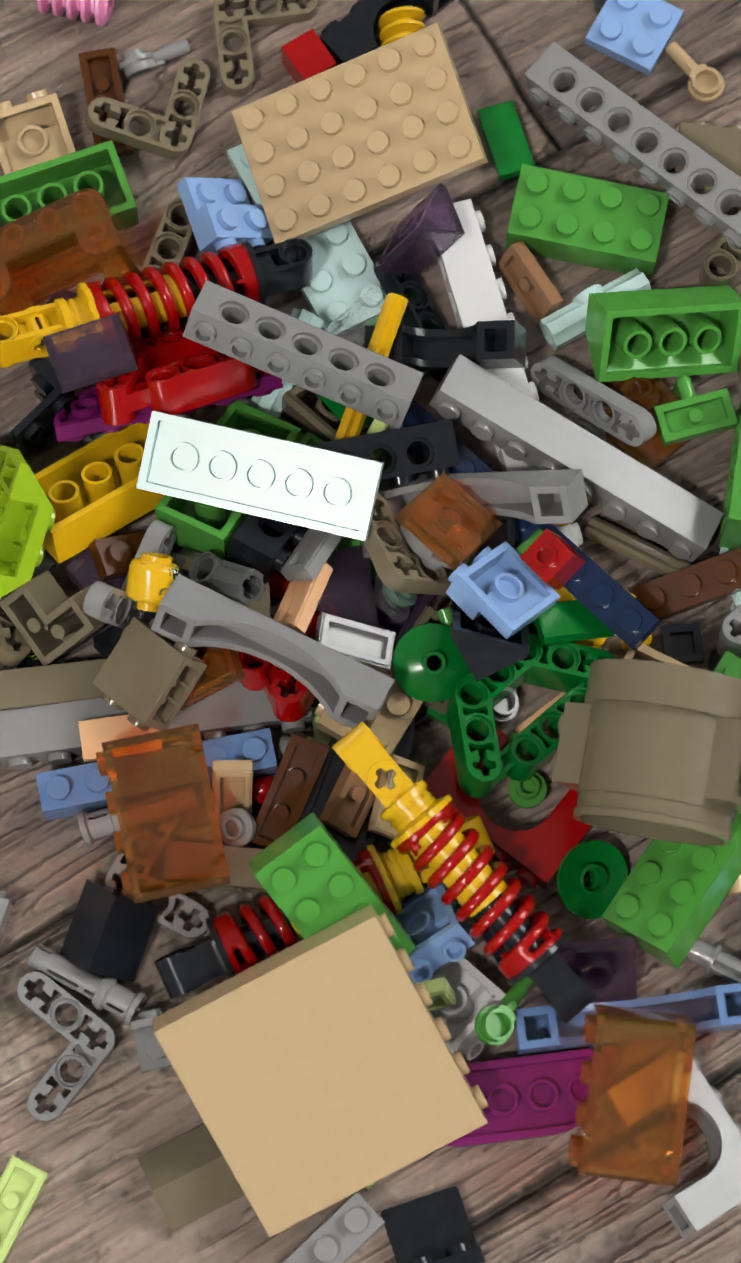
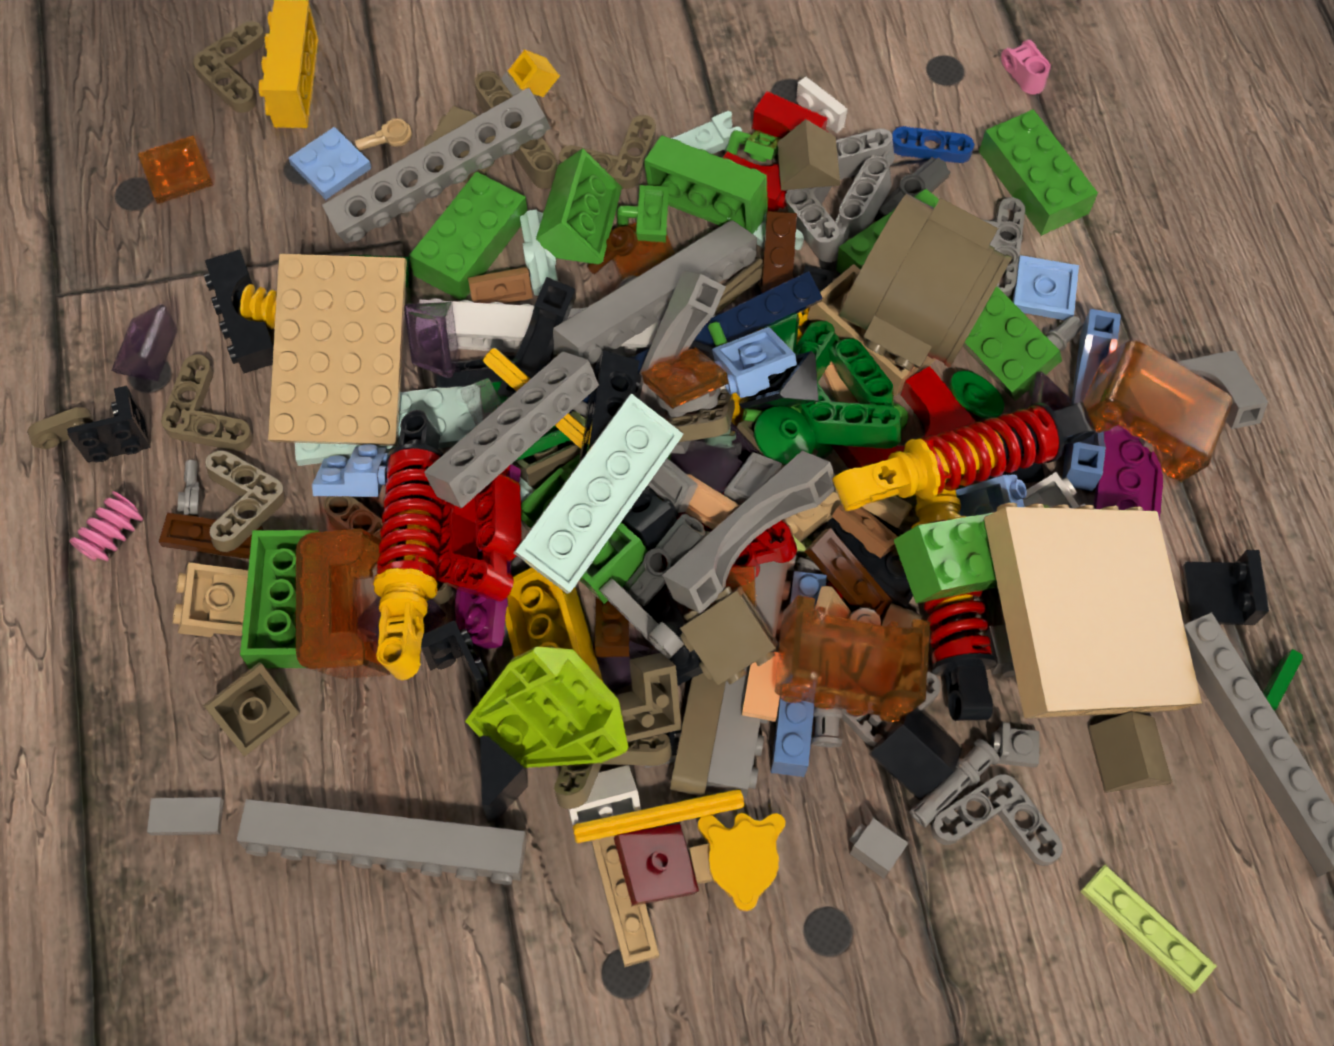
camera: 70 degrees left, 10 degrees down
(91, 352) = (446, 584): clear purple slope -> none
(150, 579) = (656, 601): yellow head -> none
(306, 56) = (251, 377): red brick -> none
(496, 1022) = (1077, 481): bright green plate -> none
(552, 559) = (739, 319): red brick -> none
(628, 421) = (619, 276): light grey beam -> none

